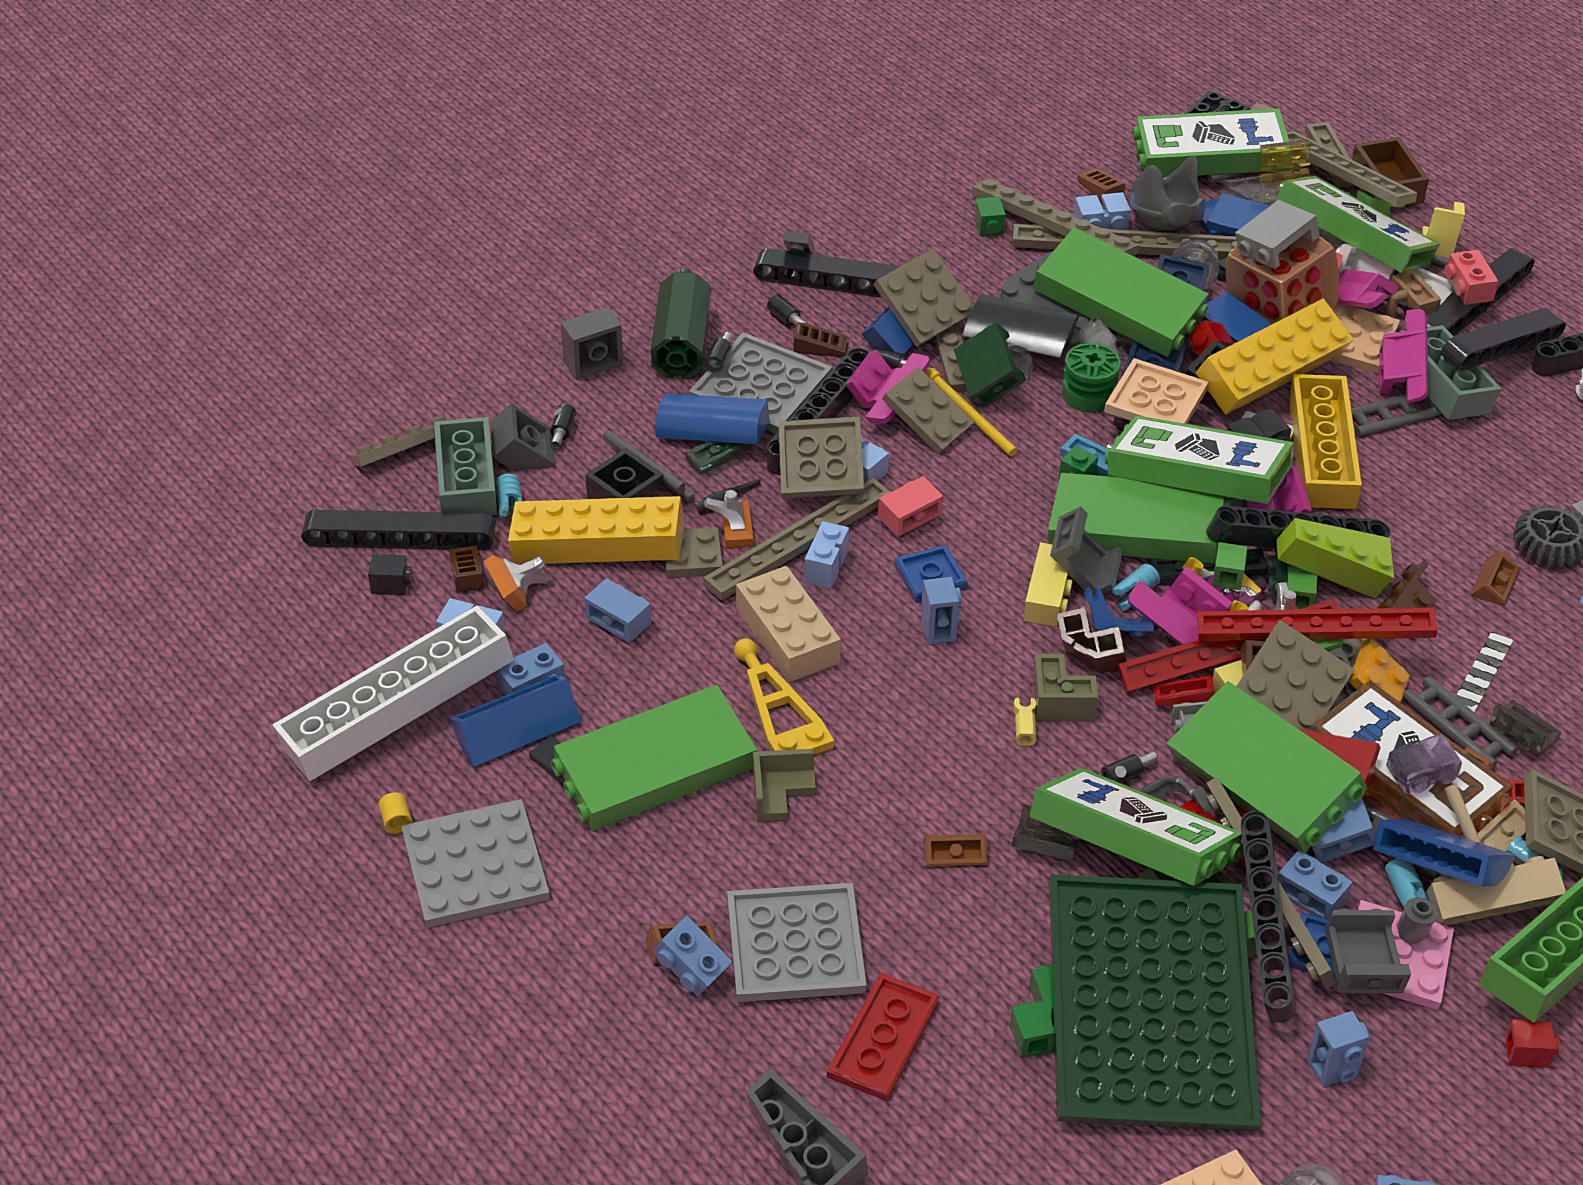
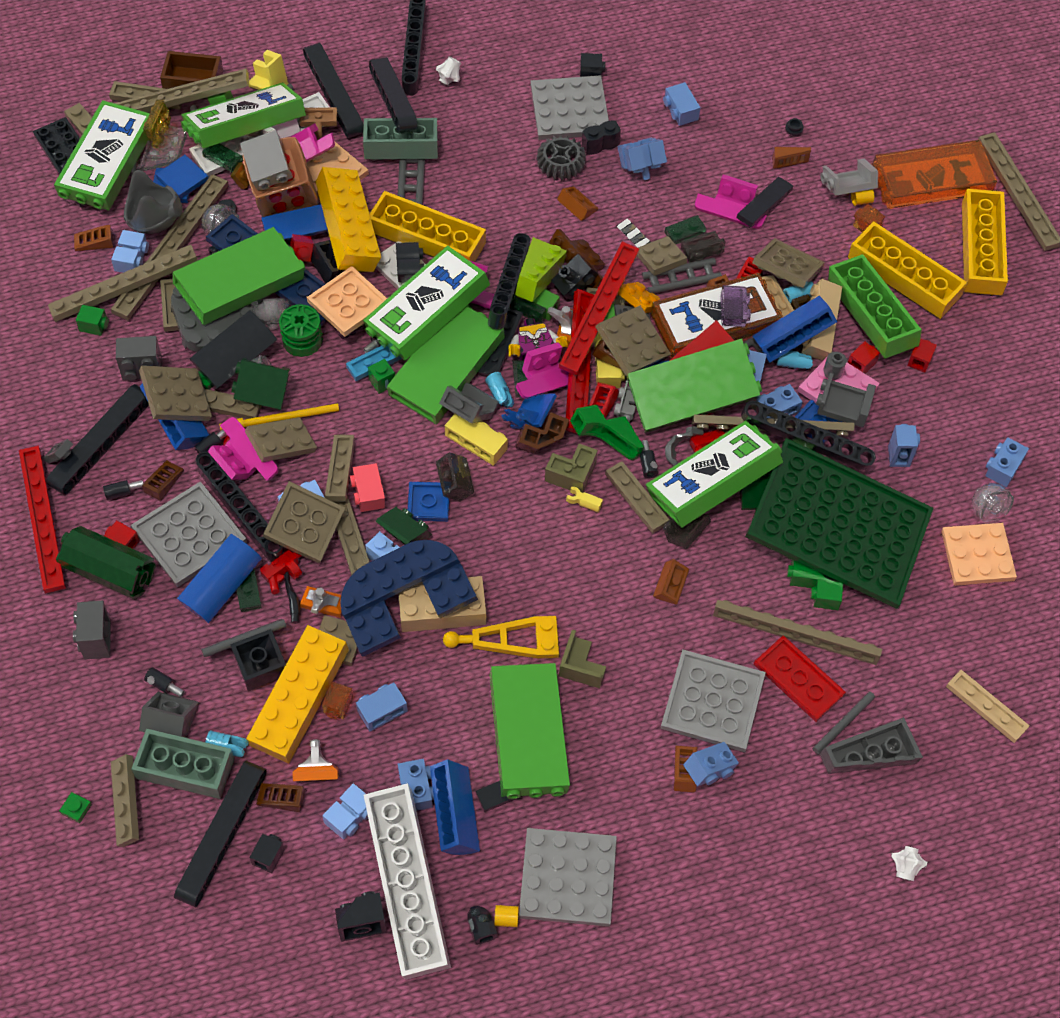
camera: 70 degrees left, 15 degrees up
(331, 663) = (361, 917): none -> black slope
(367, 793) = (481, 925): none -> black rock
(382, 411) = (75, 807): none -> green plate
(609, 566) = (337, 701): none -> clear orange brick
(716, 265) = (41, 519): none -> red plate
(719, 353) = (152, 547): black piece -> none
(720, 324) = (122, 534): none -> red brick
(762, 471) = (275, 571): none -> red piece
(817, 566) = (416, 562): none -> dark blue plate
(849, 1111) = (843, 723): none -> dark grey bar
(867, 551) = (403, 527): none -> dark green slope
(936, 471) = (340, 467): none -> dark tan plate
(940, 610) = (478, 507): medium blue brick -> none
(954, 1019) = (797, 632): none -> dark tan plate
(962, 257) = (137, 352): none -> dark grey brick
(977, 577) = (455, 477): none -> clear smoke brick
(1074, 754) = (637, 497): none -> dark tan plate
(1145, 713) = (614, 431): none -> green arch
(1229, 566) = (523, 330): bright green brick -> none
(1359, 593) = (574, 276): none -> black brick
(1405, 358) = (384, 153): dark pink plate -> none
(1461, 813) = (775, 306): tan bar -> none
(1467, 968) = (864, 357): none -> red brick
(1471, 277) = (331, 82): coral brick -> none
(1472, 687) = (661, 256): none -> dark tan plate
(1543, 704) = (685, 229): none -> clear green plate

